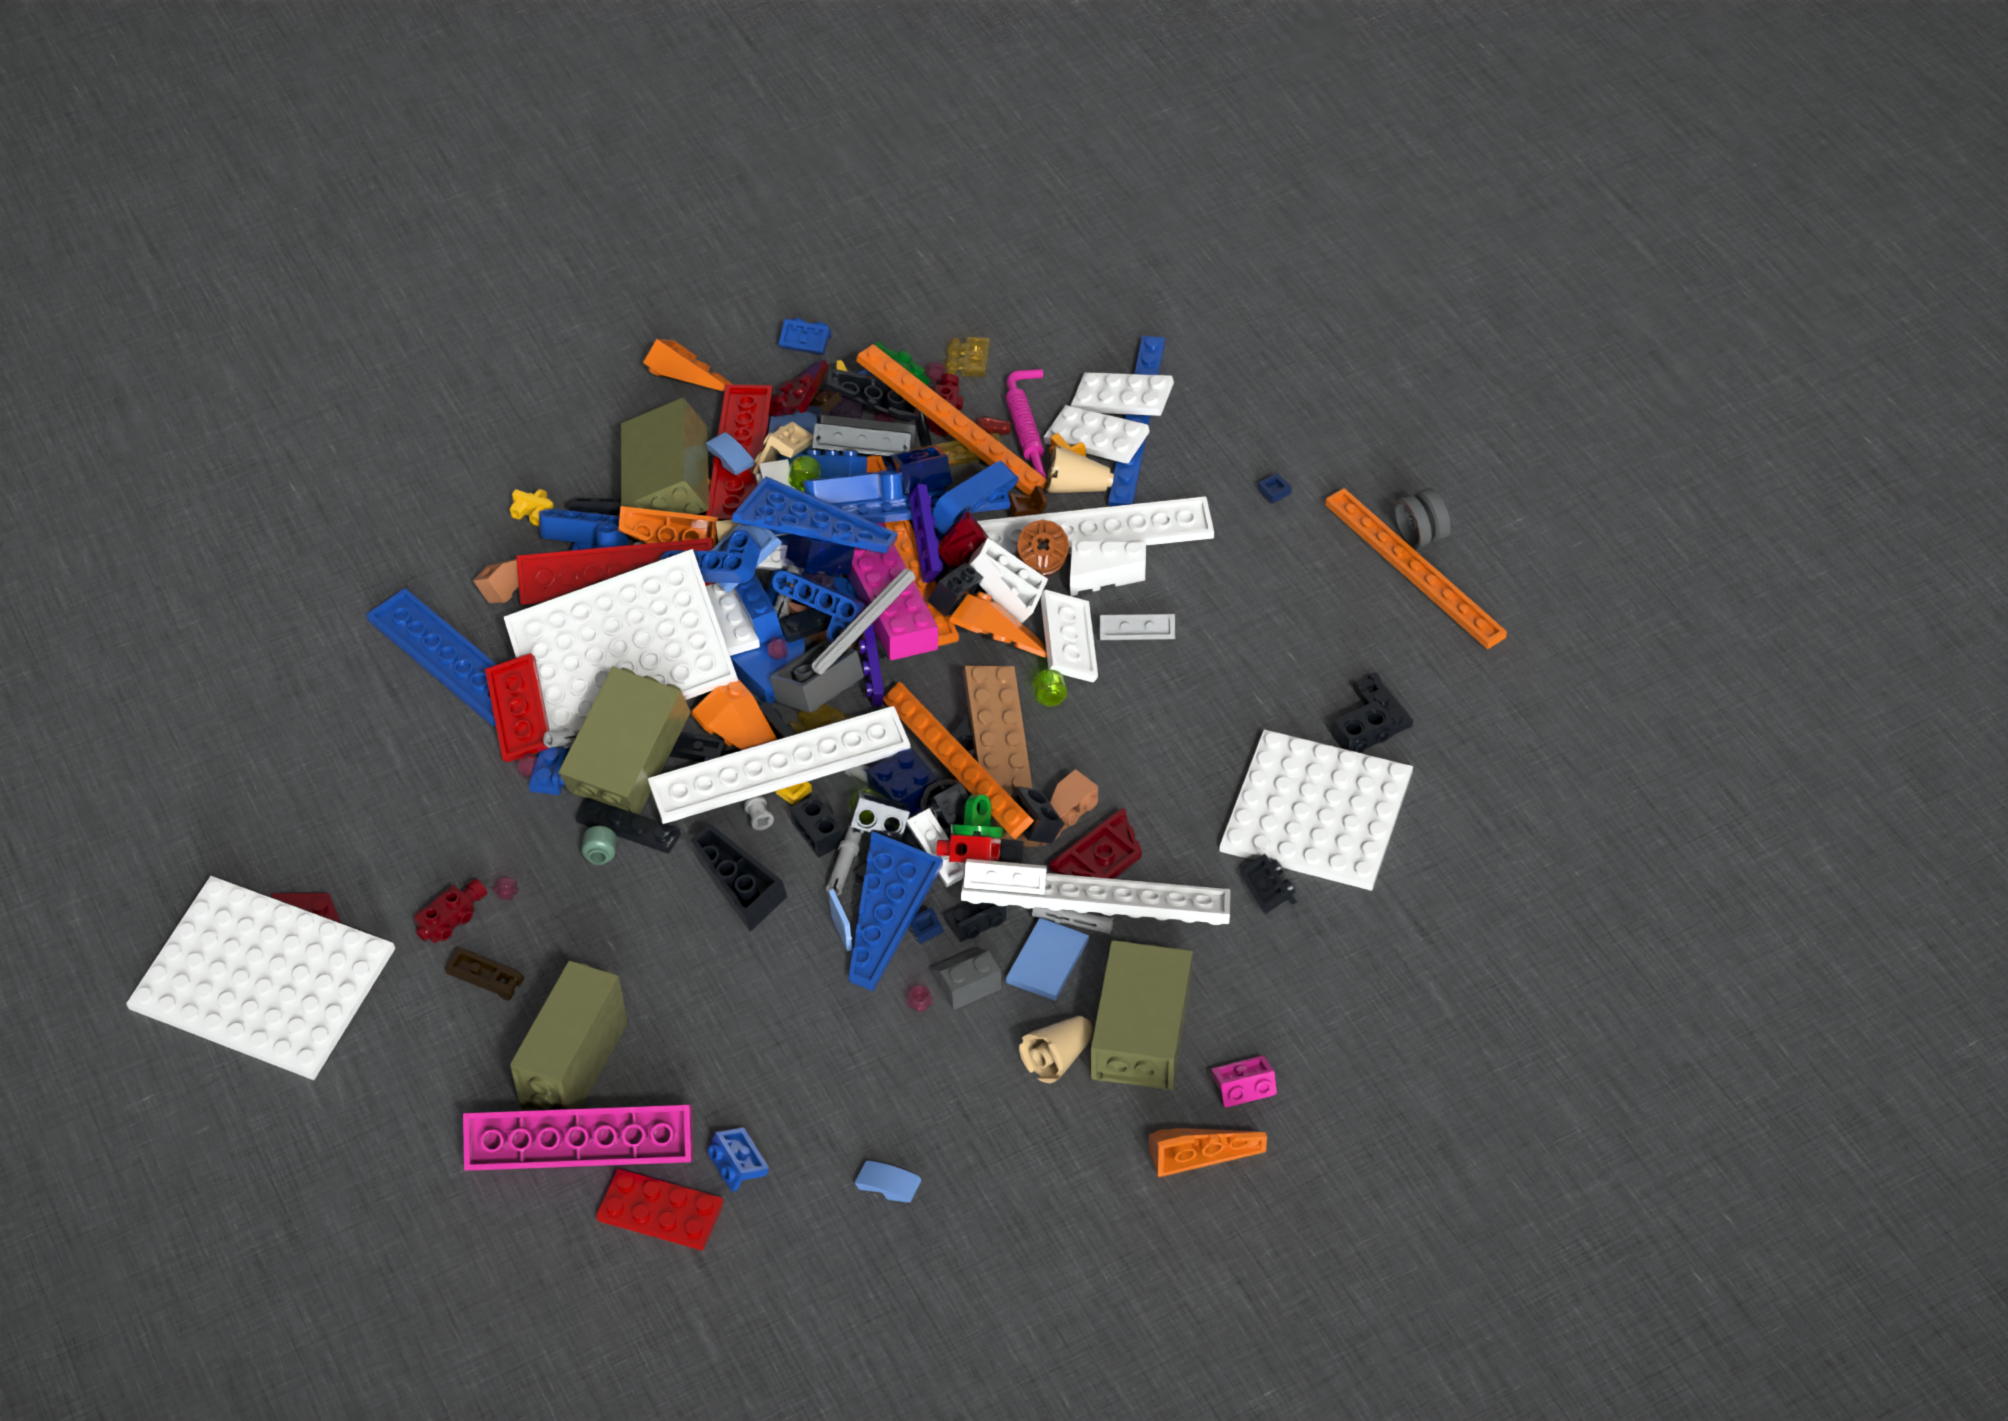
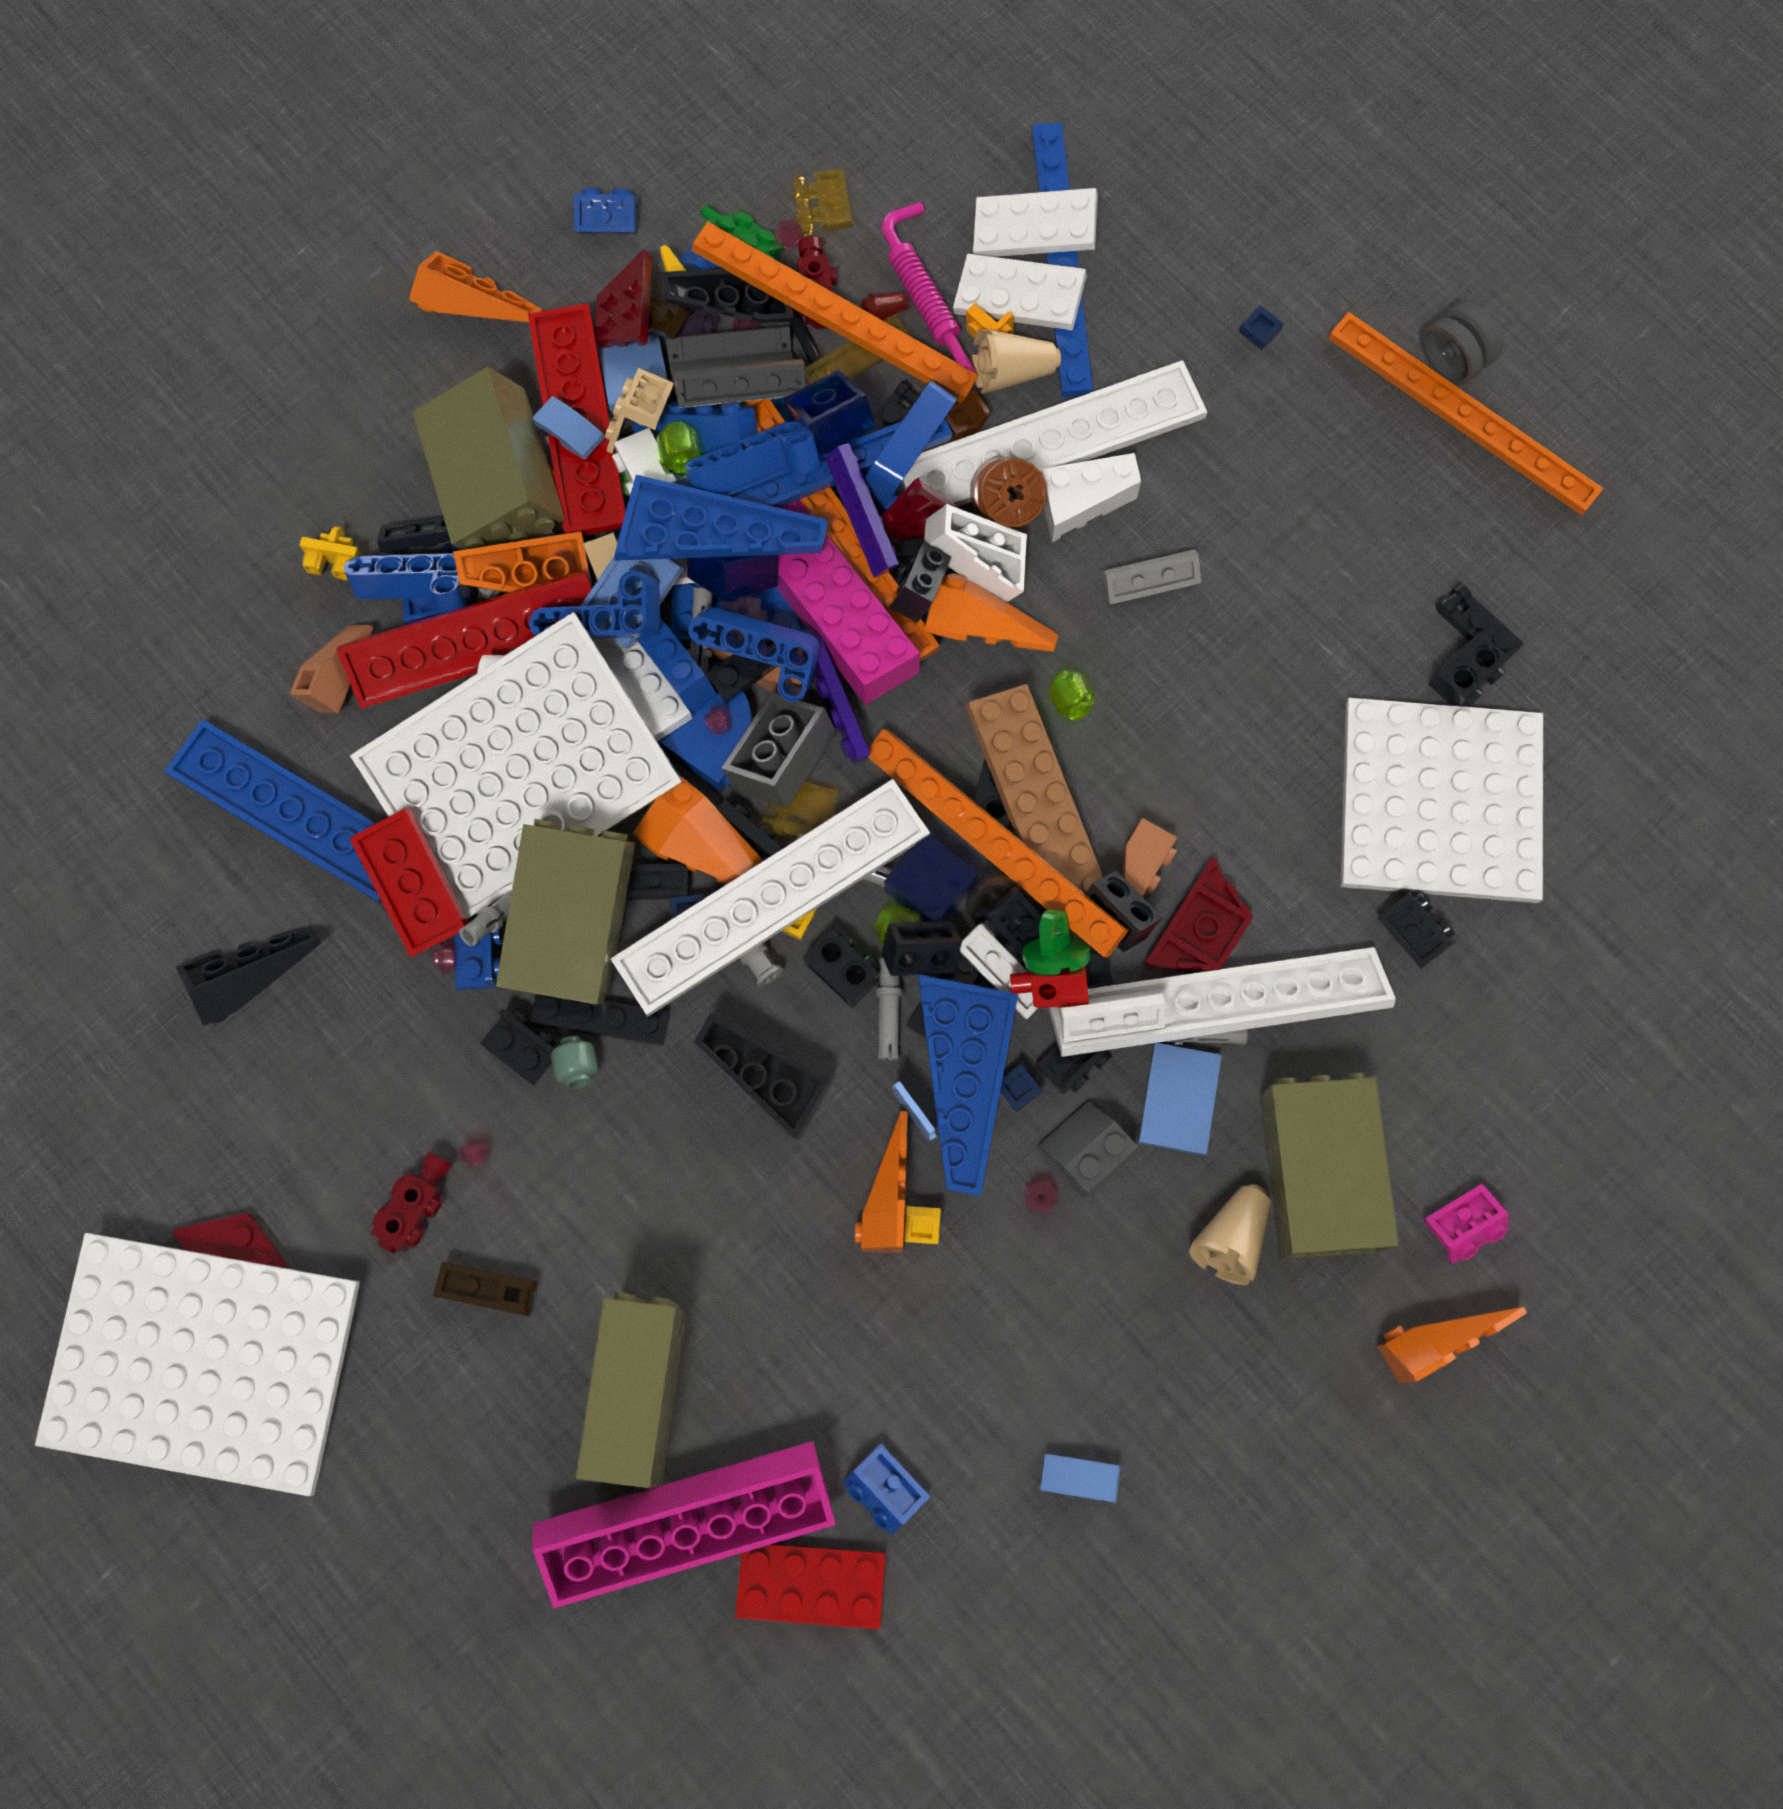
camera: 15 degrees left, 25 degrees up
(365, 749) = (229, 981): none -> black wedge
(562, 829) = (519, 1046): none -> black bracket
(799, 977) = (884, 1212): none -> orange wedge
(822, 996) = (922, 1225): none -> yellow plate
(863, 621) = (825, 670): light grey axle -> none
(1069, 635) = (1073, 611): white plate -> none

